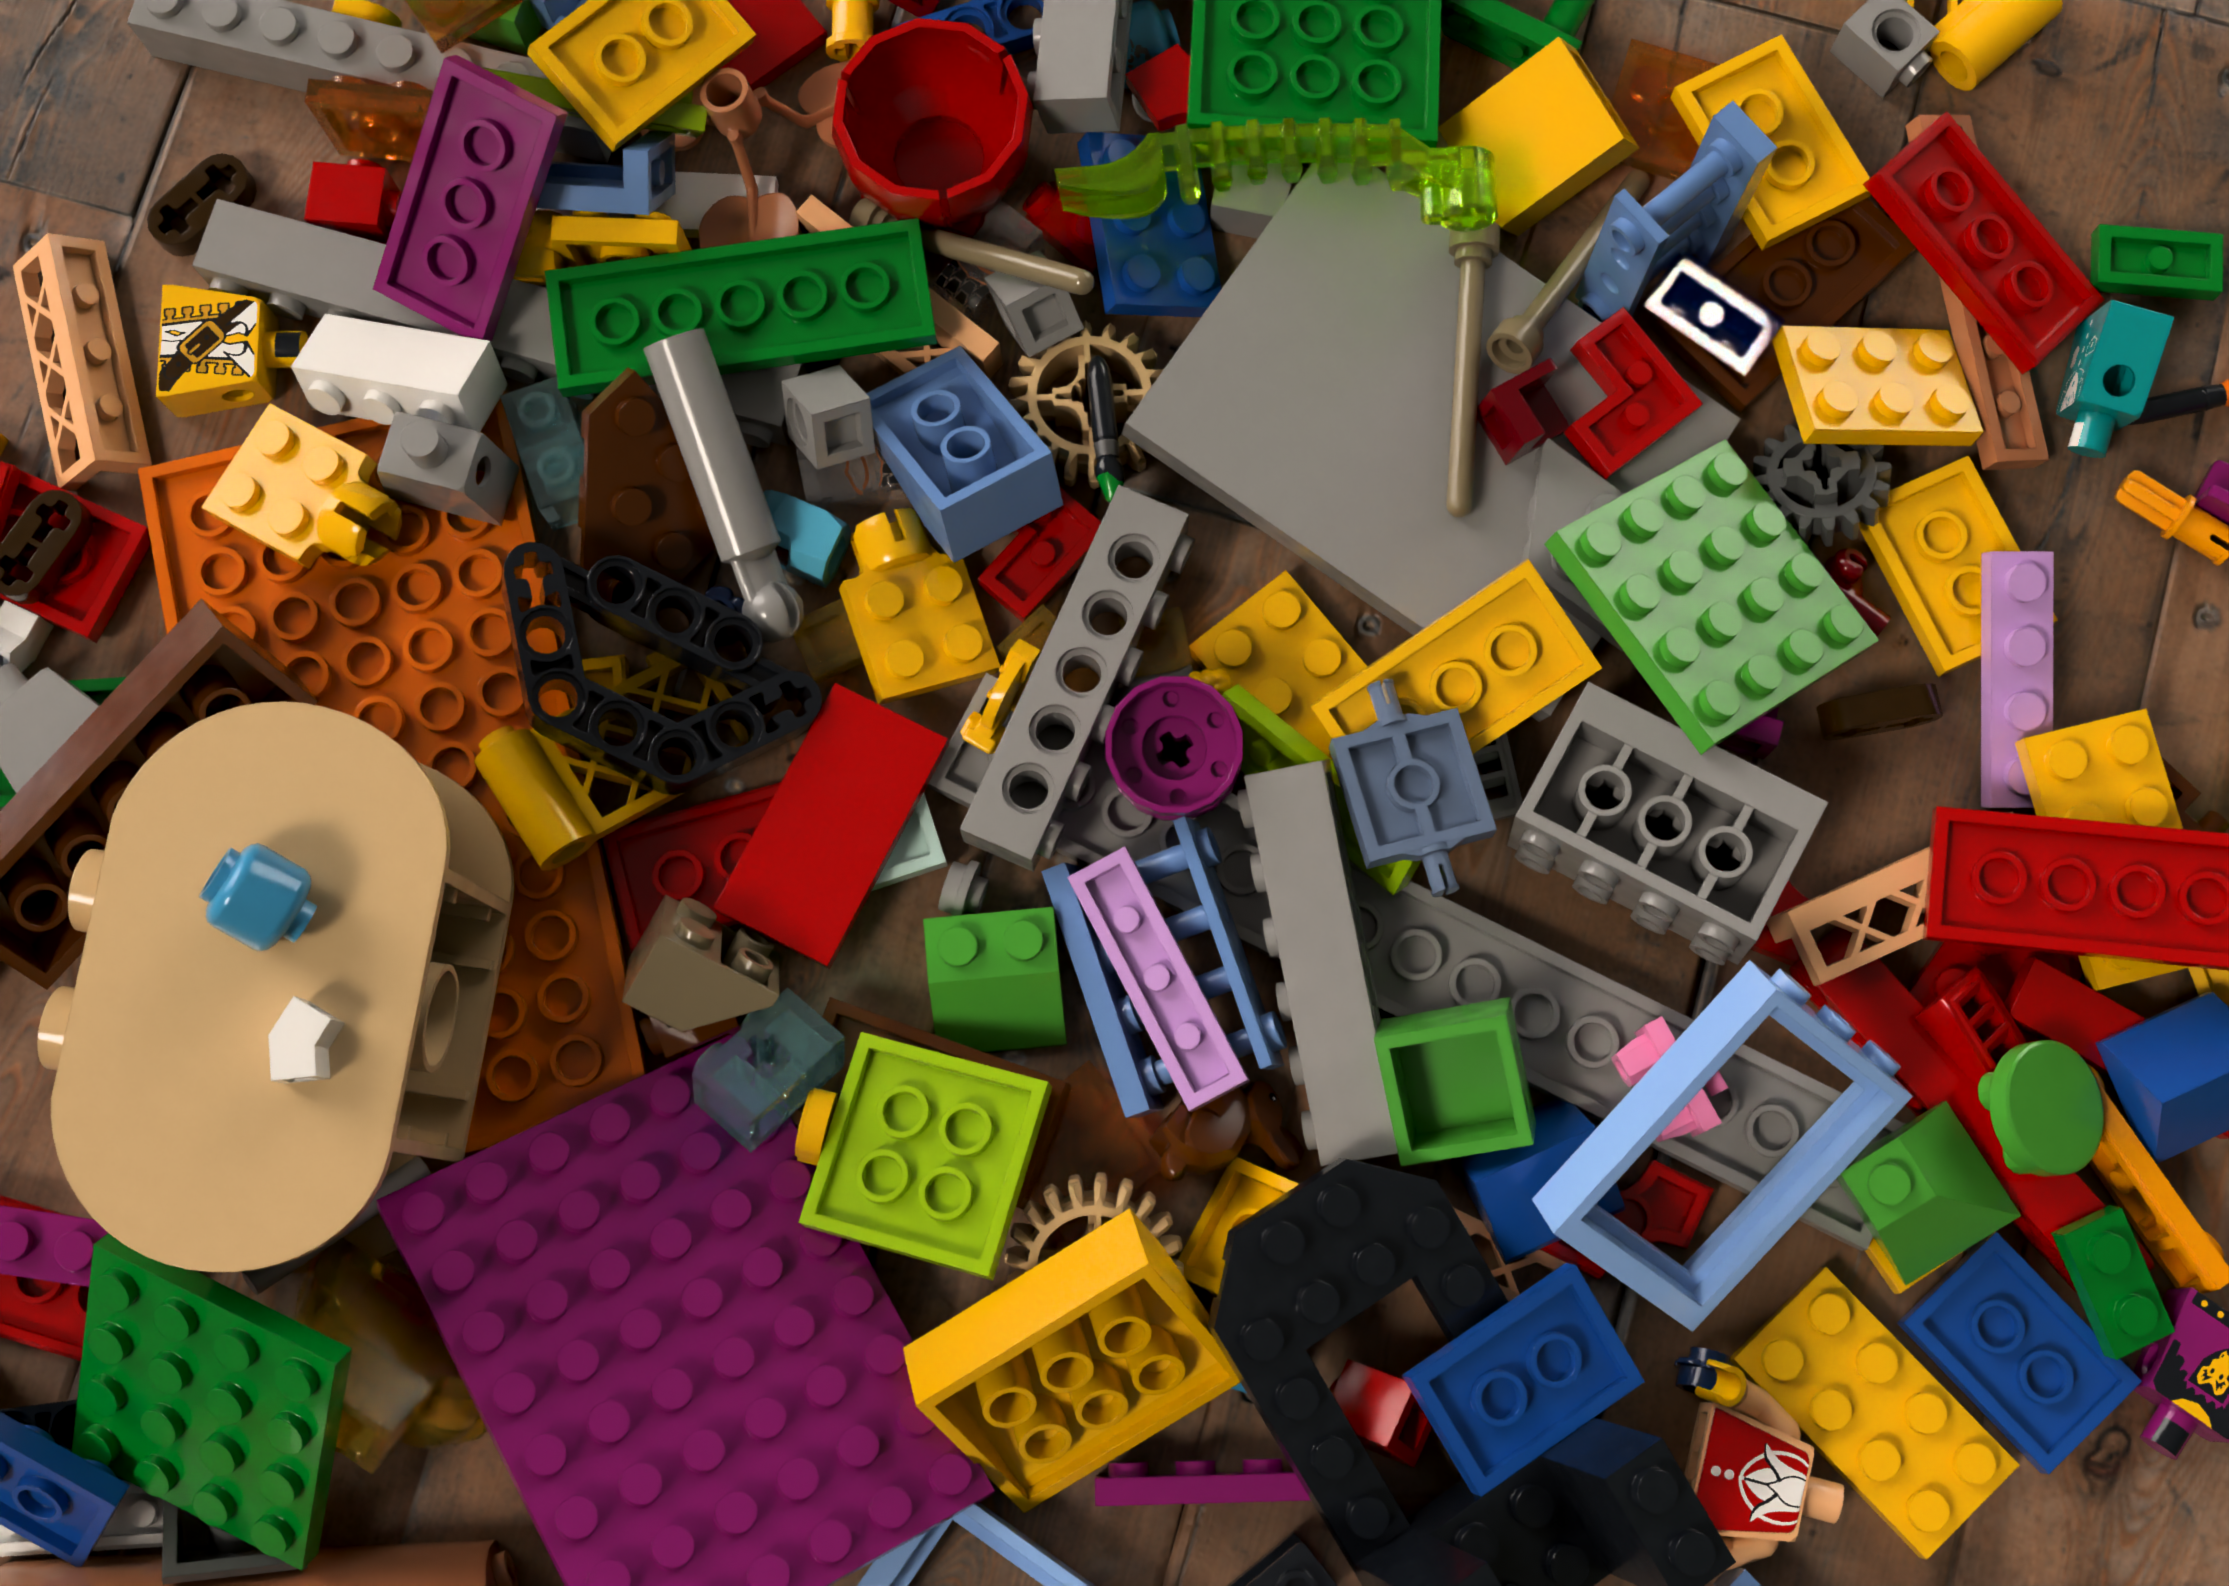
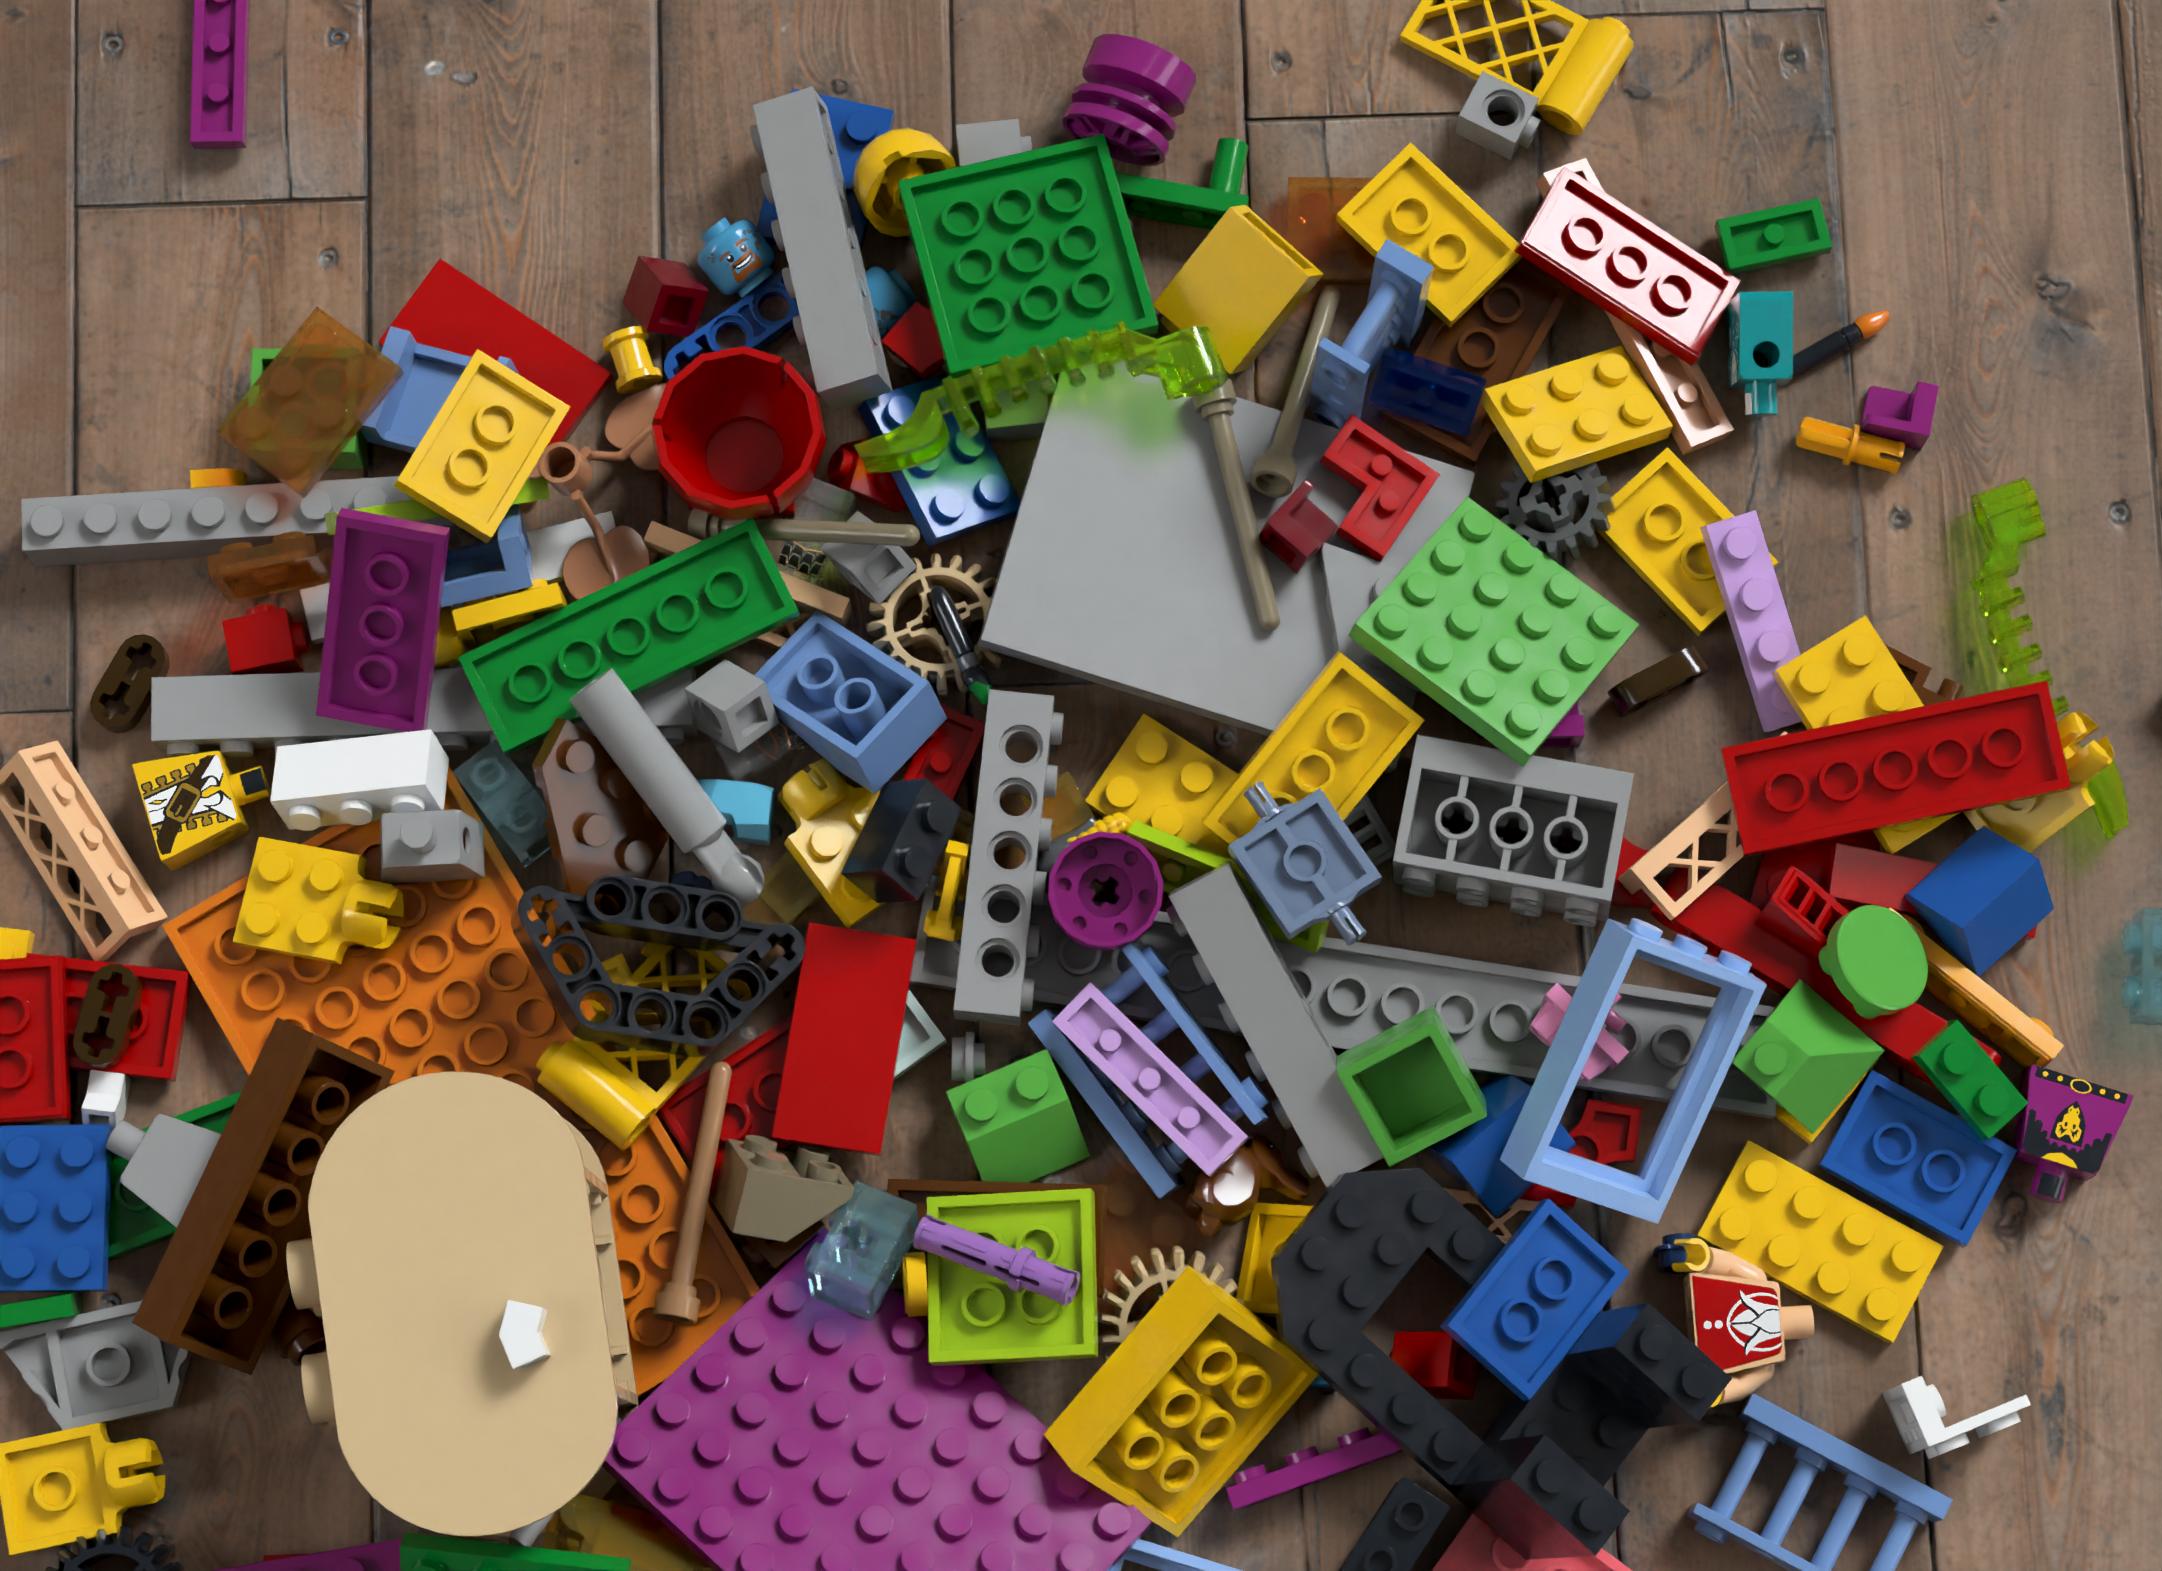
camera: 20 degrees left, 0 degrees up
(258, 897) = (453, 1233): dark azure head -> none
(549, 1054) = (678, 1298): none -> medium nougat piece
(932, 1147) = (1016, 1267): none -> medium lavender pin
(966, 623) = (902, 841): none -> black brick
(1846, 572) = (1598, 575): dark red arm -> none

